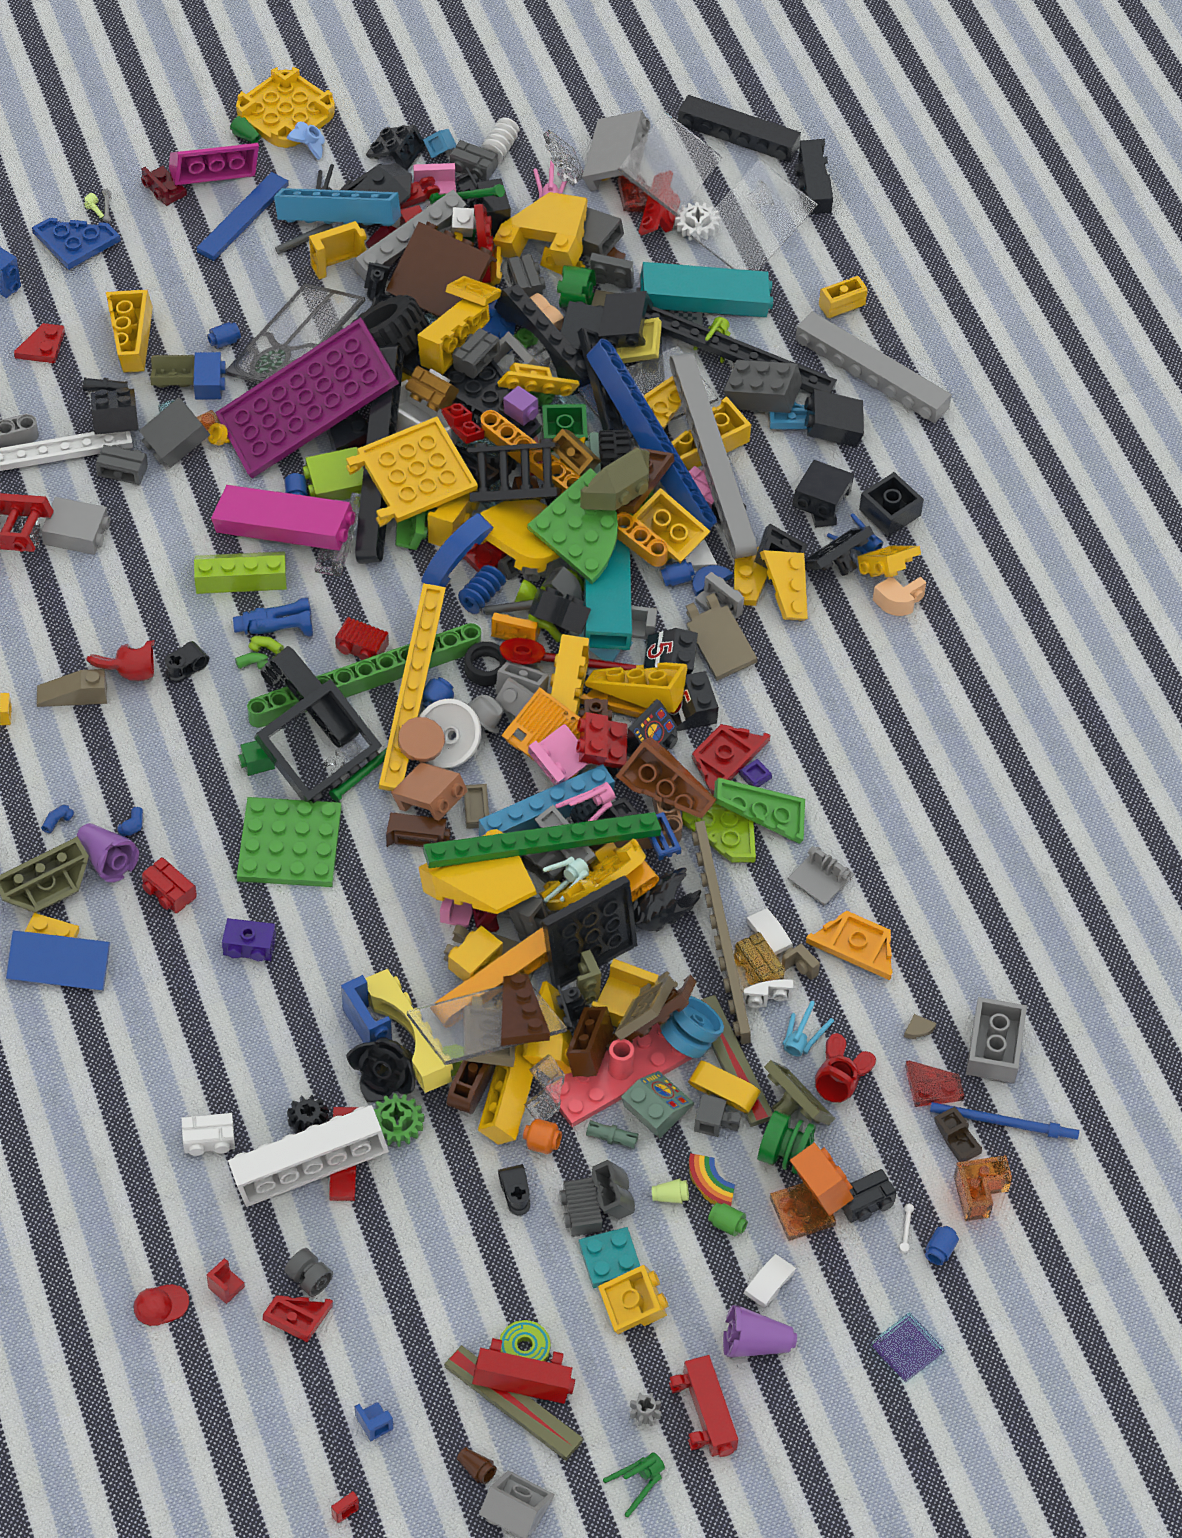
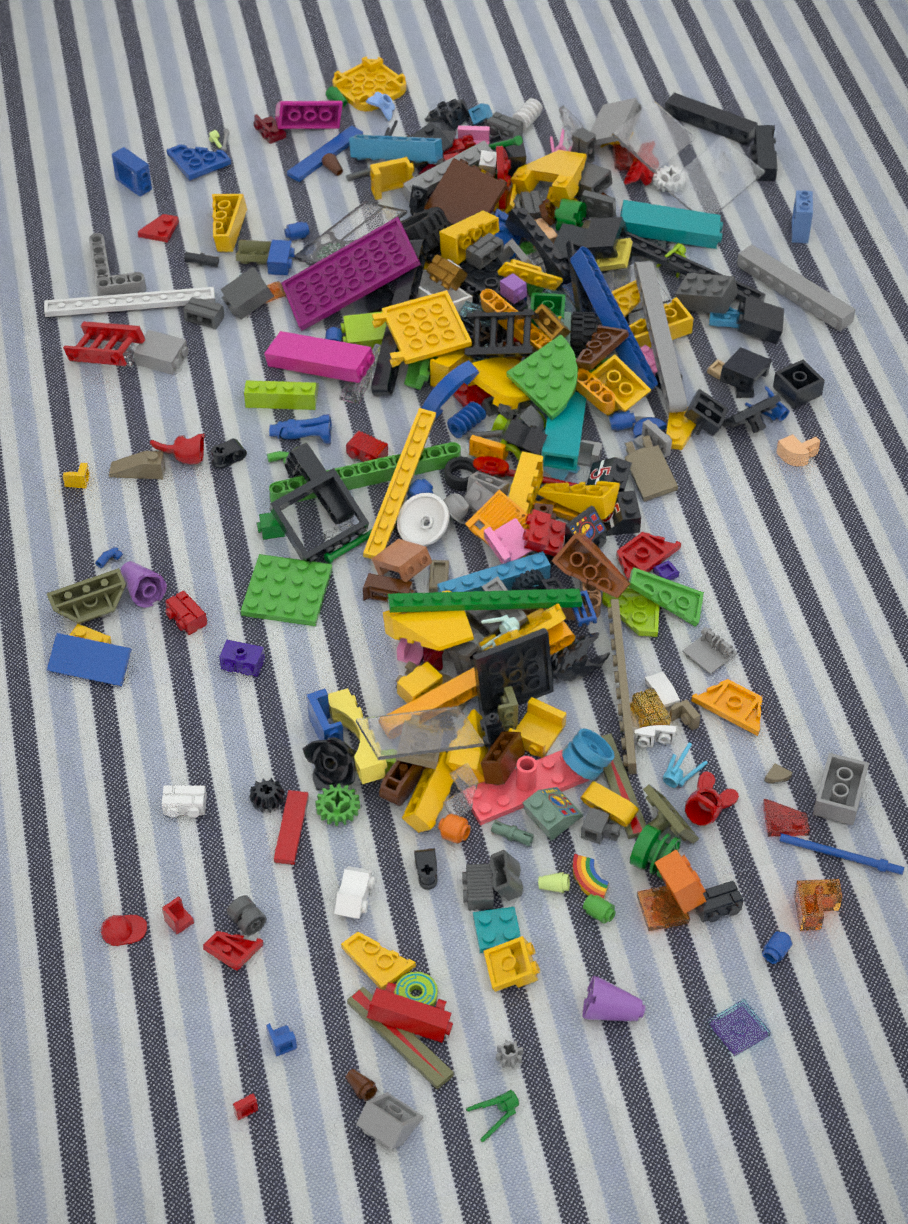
camera: 10 degrees right, 5 degrees down
(114, 411) = (204, 274): black brick -> none
(133, 824) = (167, 566): blue arm -> none
(218, 434) = (280, 297): yellow tile -> none
(254, 231) = (331, 163): none -> reddish brown cone
(267, 642) = (288, 444): lime arm -> none
(308, 1155) = (259, 823): white brick -> none
(421, 739) = (401, 521): nougat tile -> none
(433, 1229) = (353, 892): none -> white brick
(461, 423) = (466, 298): red slope -> none
(473, 290) = (488, 207): yellow tile -> none
(473, 1313) = (376, 961): none -> yellow wing
(521, 1013) = (448, 728): reddish brown wing -> none
(547, 284) = (547, 212): none -> reddish brown tile
(581, 181) = (584, 143): none -> dark grey brick
(601, 795) = (536, 571): bright pink plant -> none
(618, 482) = (580, 343): olive wedge -> none
(646, 1005) = (552, 732): dark tan tile -> none
(676, 1000) = (561, 739): reddish brown wing -> none
(710, 1407) = (564, 1056): red brick -> none
(769, 1280) = (627, 961): white slope -> none
(787, 489) = (715, 369): none -> tan tile
(789, 581) = (709, 428): yellow wing -> none
(843, 297) = (777, 236): yellow brick -> none
(872, 265) = (802, 216): none -> medium blue window
(887, 560) = (790, 423): yellow plate -> none
(904, 1247) = (746, 946): white hinge -> none
(956, 1135) = (799, 860): dark brown slope -> none

